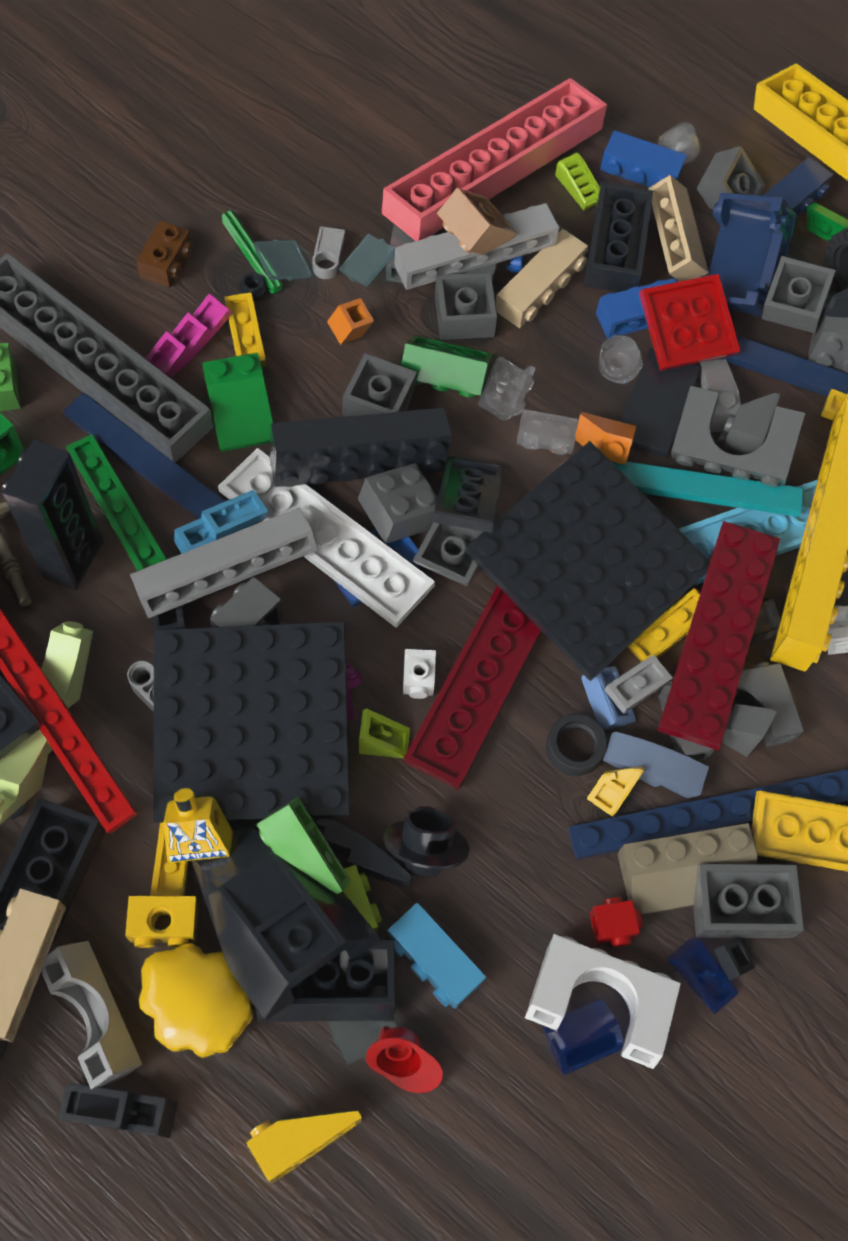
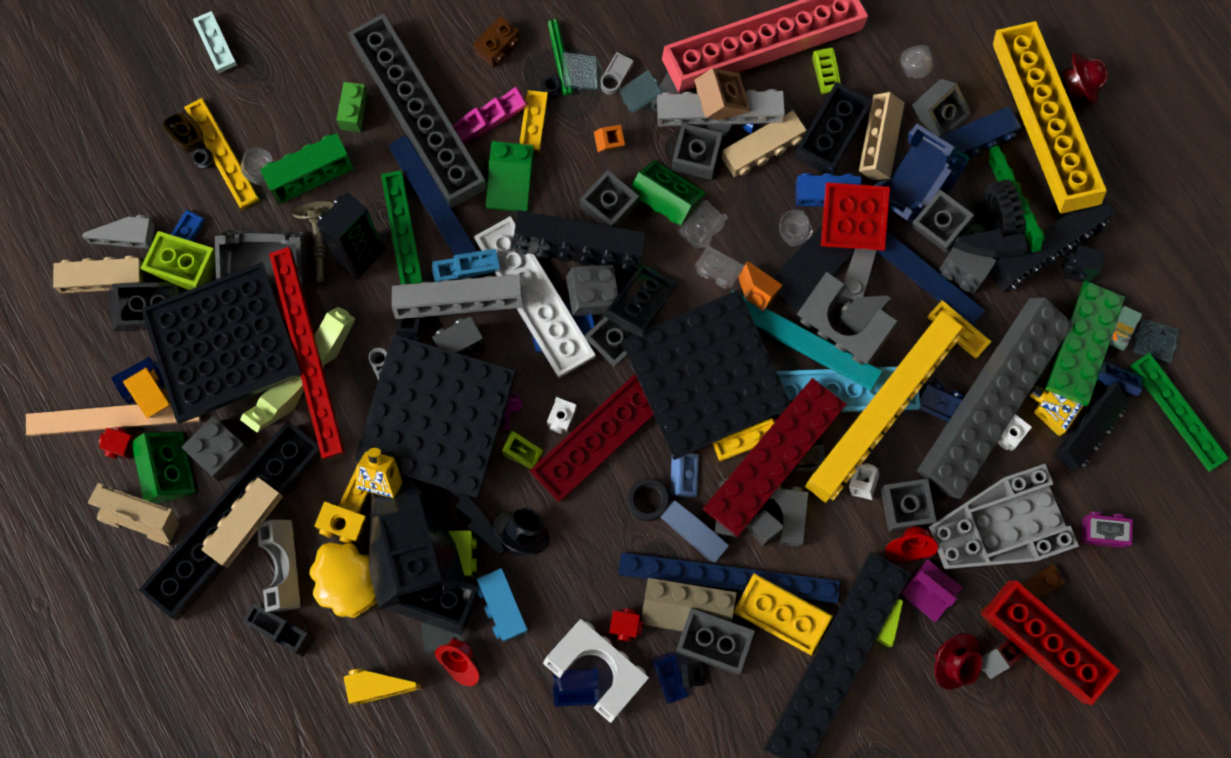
camera: 25 degrees right, 10 degrees up
(299, 841) = (439, 506): bright green slope -> none
(614, 788) = (660, 537): yellow tile -> none
(638, 684) = (705, 473): light grey hinge -> none
(640, 160) = (881, 68): blue brick -> none

